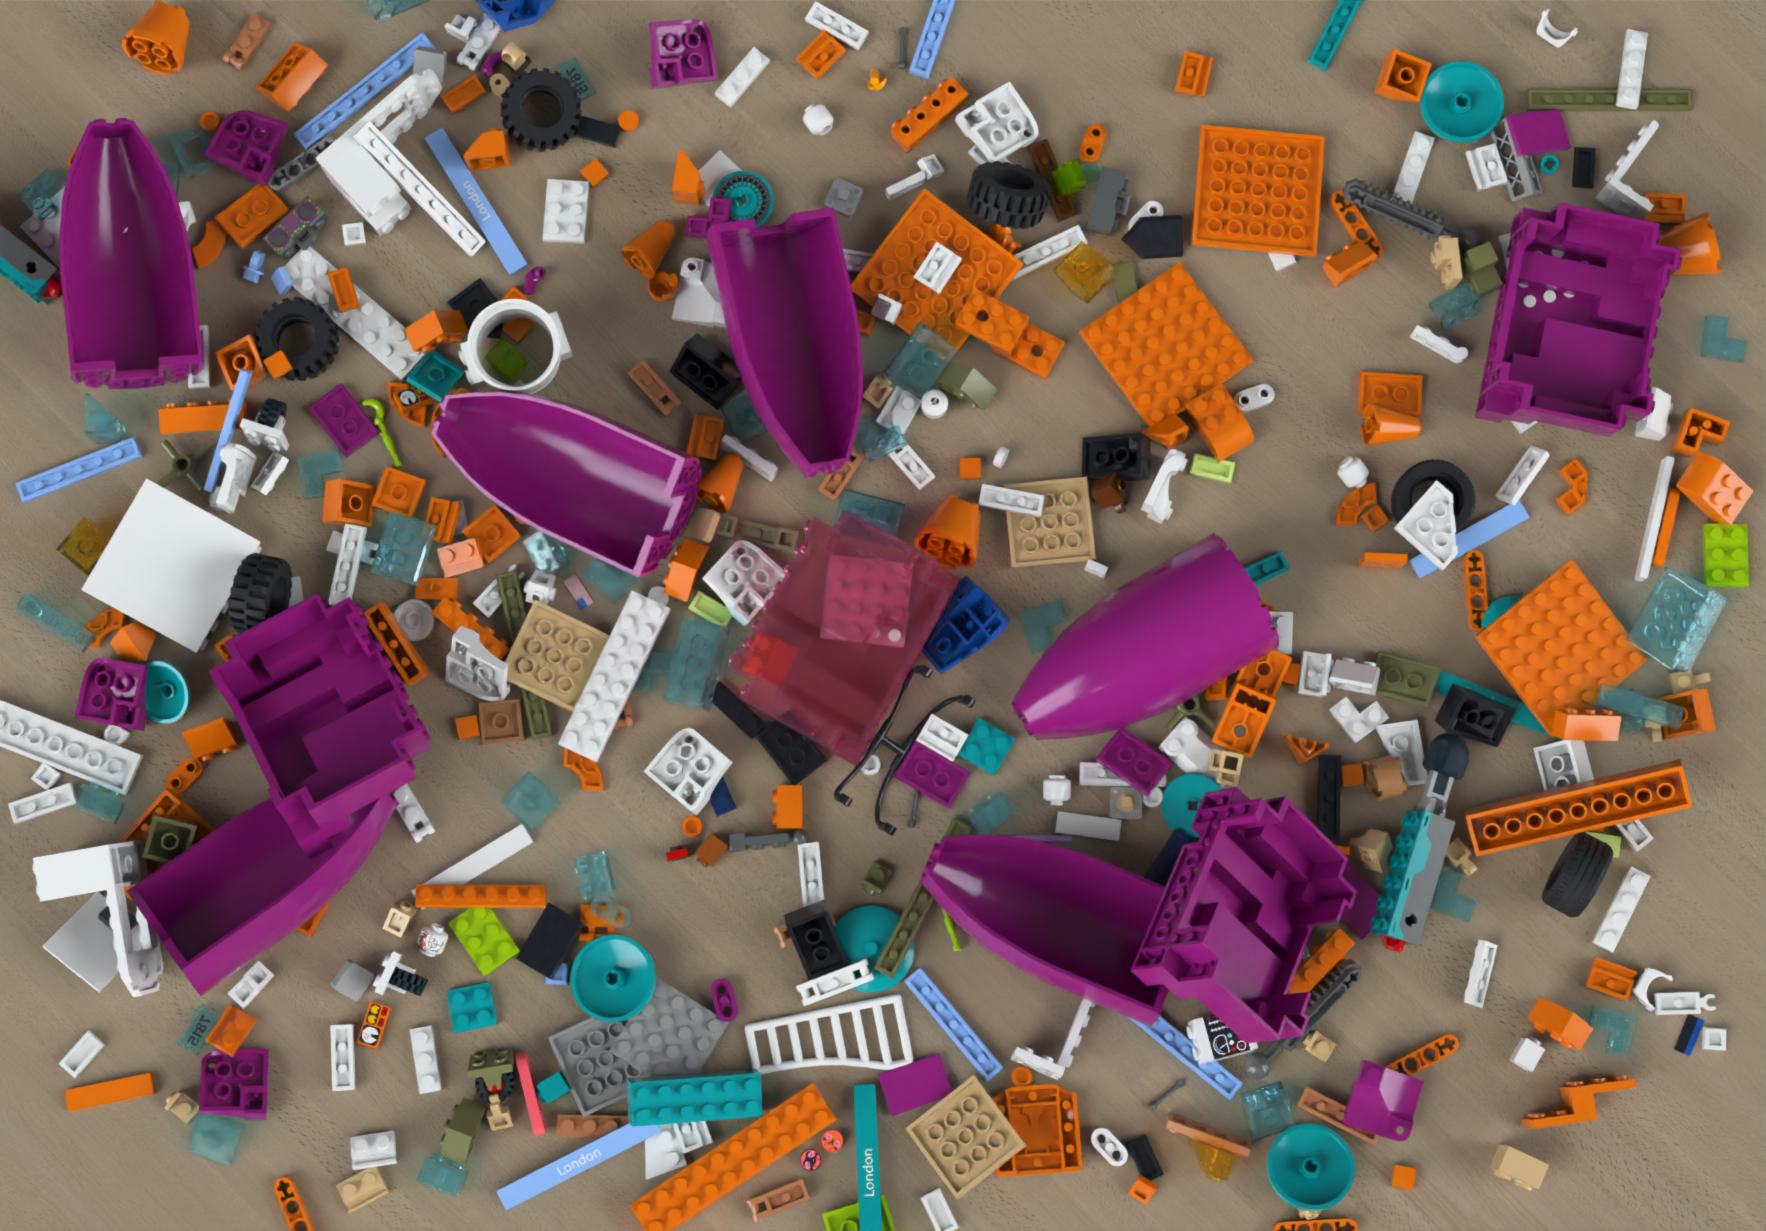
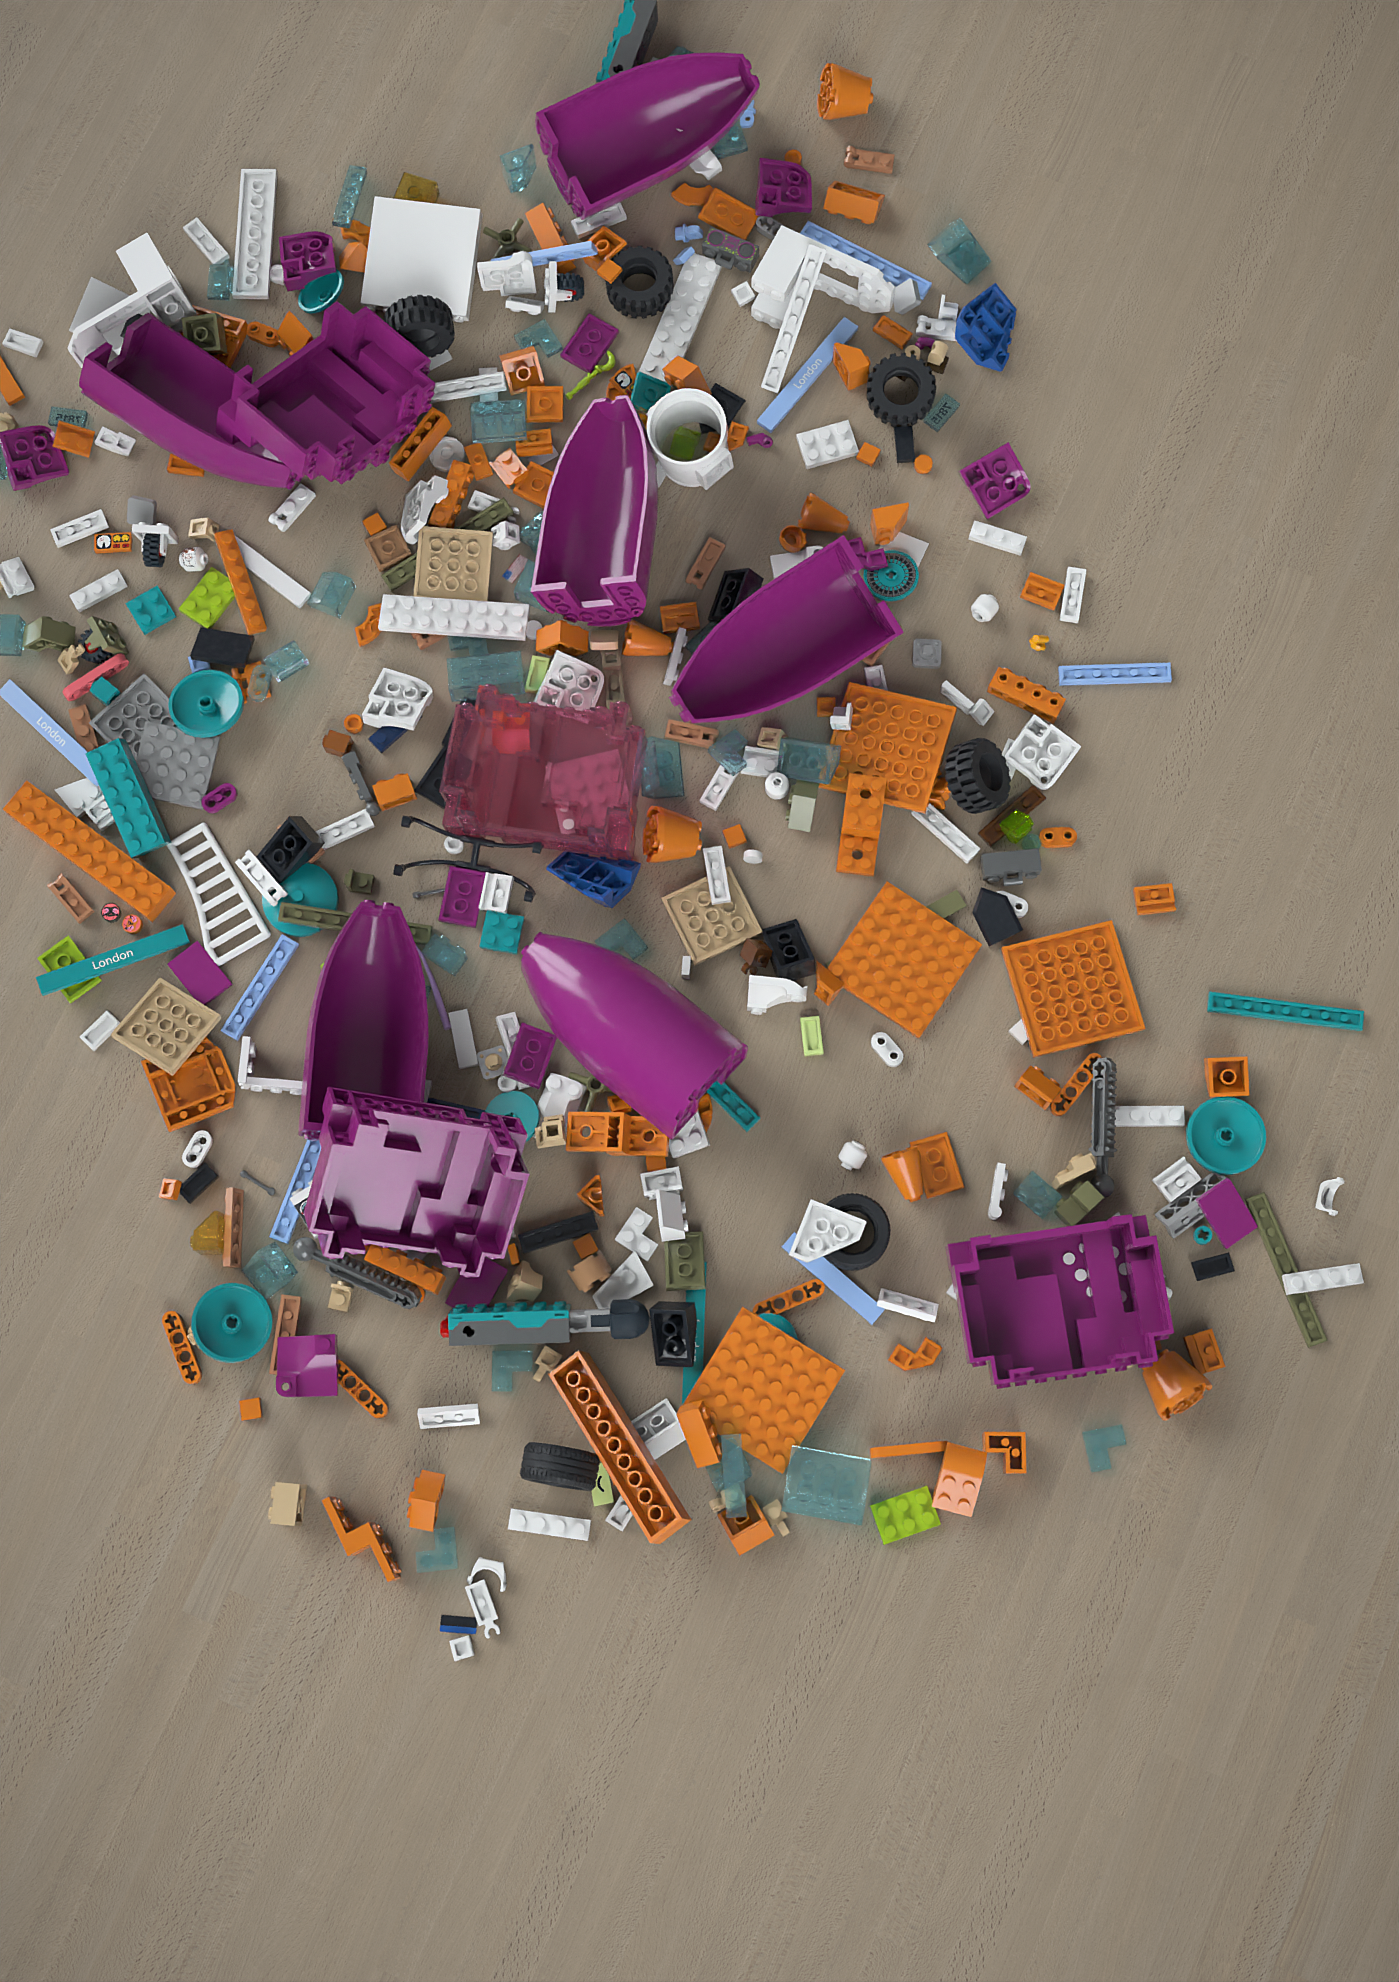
camera: 75 degrees right, 5 degrees down
(46, 776) = (227, 238): white tile -> none
(78, 470) = (477, 171): light blue tile -> none
(177, 142) = (757, 147): clear light blue tile -> none
(343, 290) = (693, 301): orange tile -> none
(677, 853) = (326, 718): plate -> none
(902, 32) = (1090, 650): dark grey hinge -> none
(937, 268) = (892, 743): white plate -> none
(1021, 1076) = (232, 1057): orange tile -> none
(1056, 789) = (484, 1000): white head -> none
(1085, 272) = (939, 868): clear yellow slope -> none
(1220, 423) = (851, 1025): orange brick -> none
(1354, 504) = (827, 1168): orange tile -> none
(1375, 518) = (820, 1189): orange tile -> none
(1382, 560) = (781, 1204): orange tile -> none
(1527, 1053) = (392, 1481): white brick -> none
(1610, 979) = (483, 1534): orange plate -> none
(1620, 196) = (1197, 1304): white bracket -> none
(1654, 518) = (912, 1437): white tile -> none
(1655, 424) = (1008, 1404): white slope -> none

